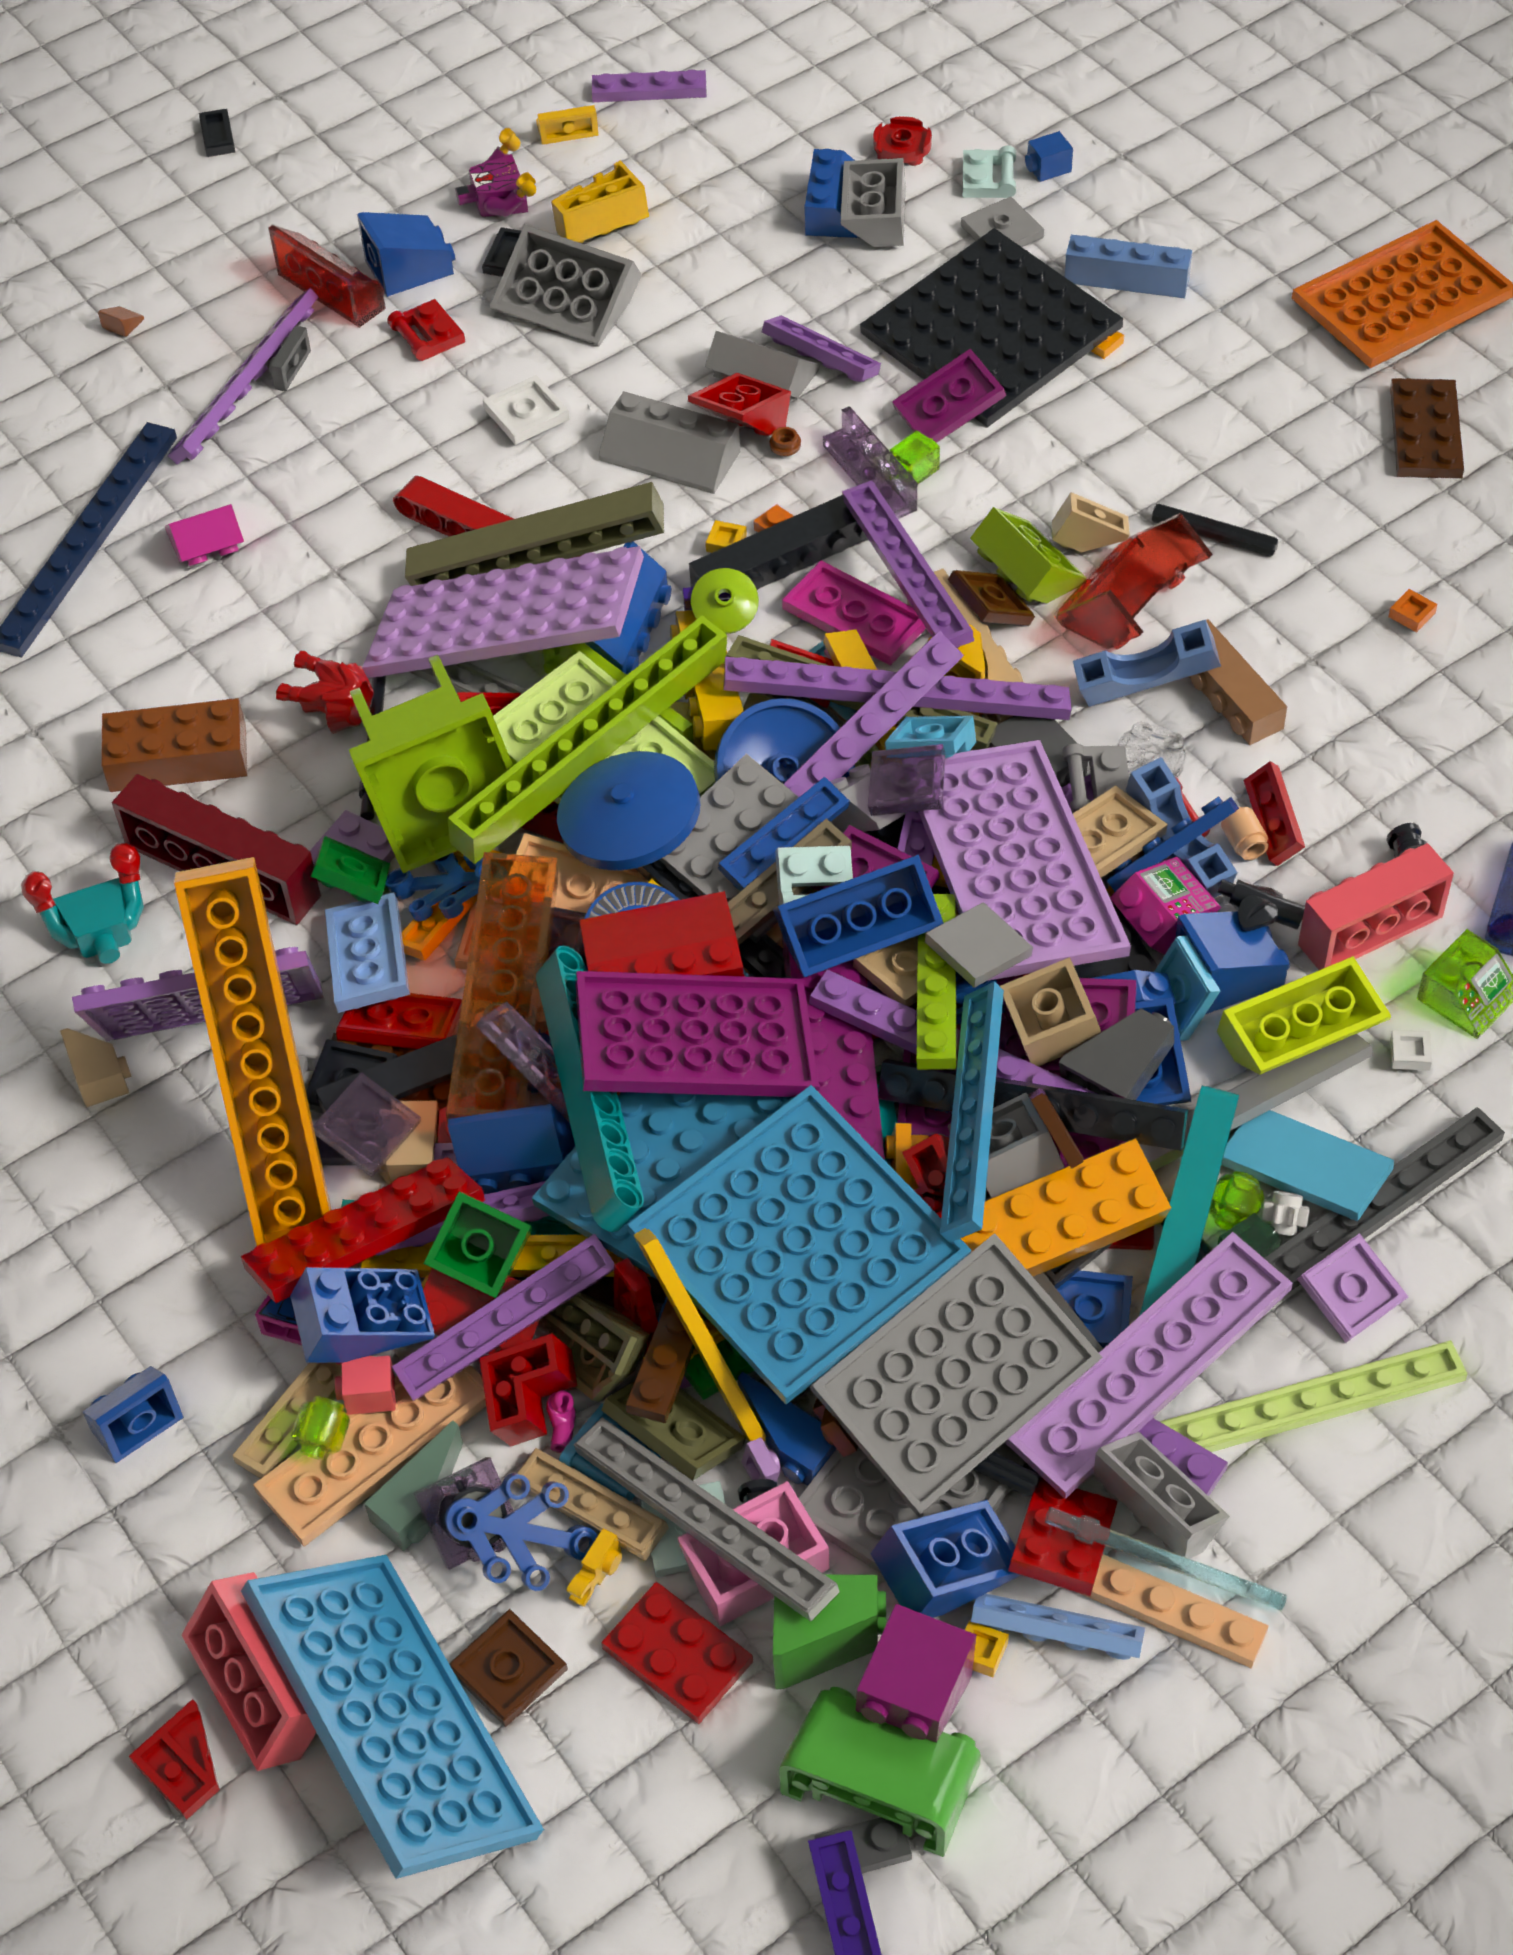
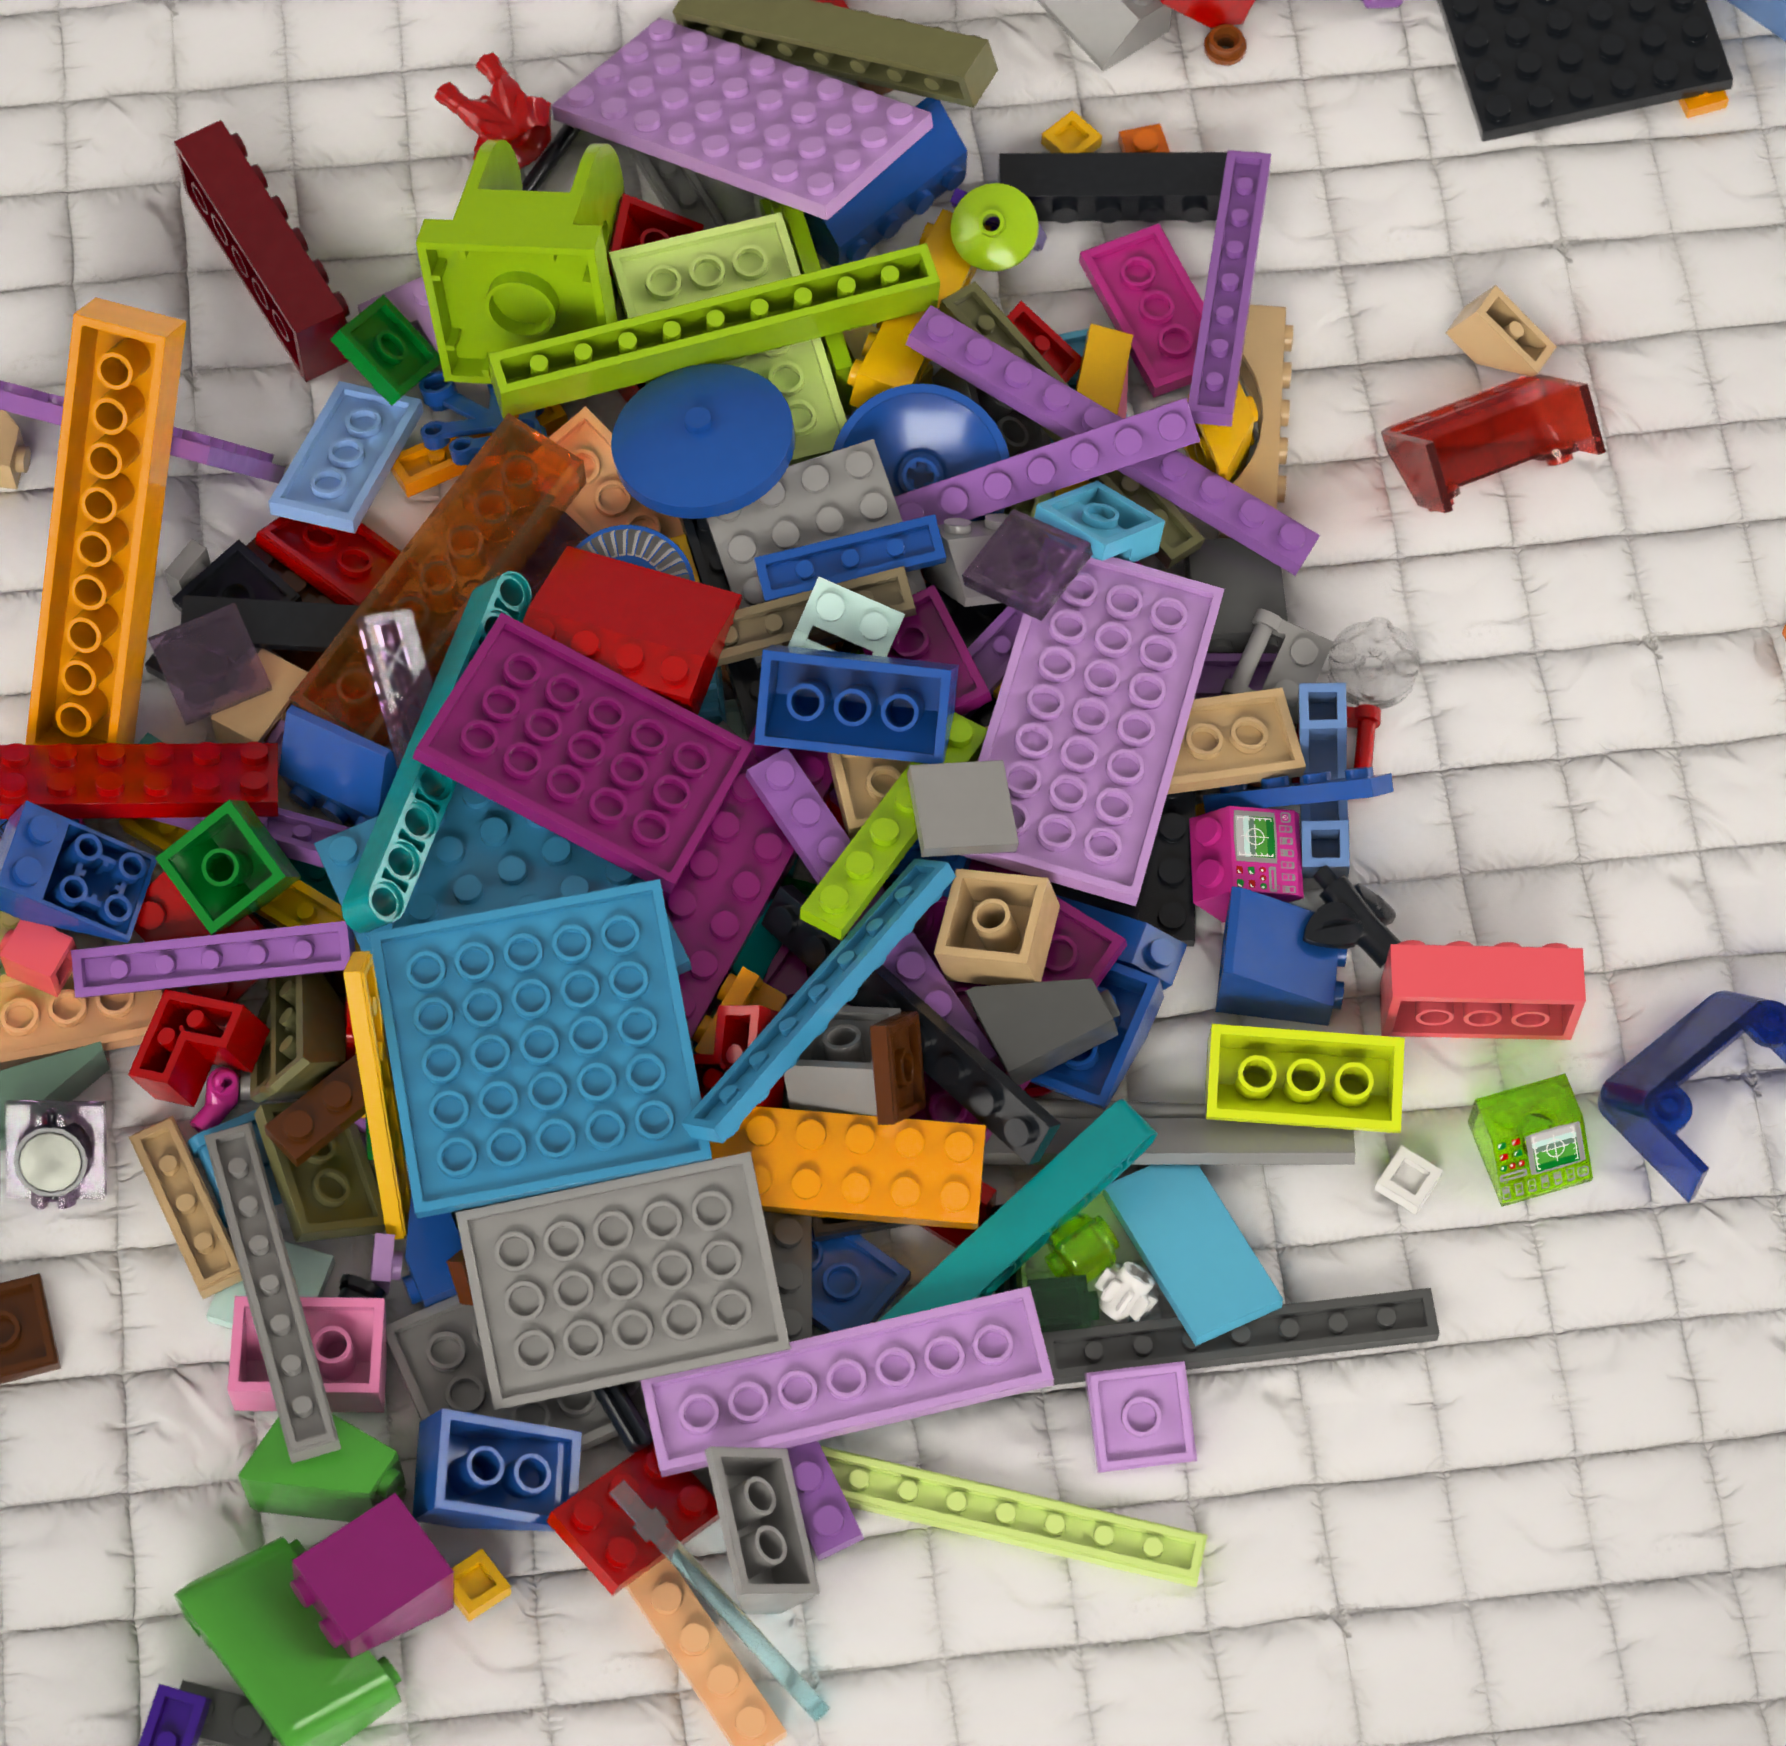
camera: 25 degrees right, 10 degrees up
(95, 917) = (93, 259): teal torso -> none
(175, 743) = (301, 96): dark orange brick -> none
(515, 1529) = (84, 1195): blue plant -> none
(599, 1561) = (153, 1275): yellow plate -> none
(677, 1652) = (176, 1413): red plate -> none
(868, 459) = (1300, 131): clear purple fence -> none
(918, 455) = (1359, 144): clear neon green brick -> none
(949, 397) = (1449, 84): magenta plate -> none
(991, 597) = (1320, 372): reddish brown tile -> none
(1025, 557) = (1402, 338): lime slope -> none
(1072, 1628) = (570, 1606): light blue plate -> none
(1112, 676) = (1473, 562): medium blue arch -> none
(1191, 984) = (1199, 972): medium azure tile -> none
(1220, 530) = (1654, 414): black axle -> none
(1241, 694) = (1524, 620): medium nougat brick -> none
(1245, 833) = (1408, 818): light nougat brick -> none
(1274, 812) = (1459, 812): red plate -> none
(1405, 837) = (1588, 931): black wheel -> none

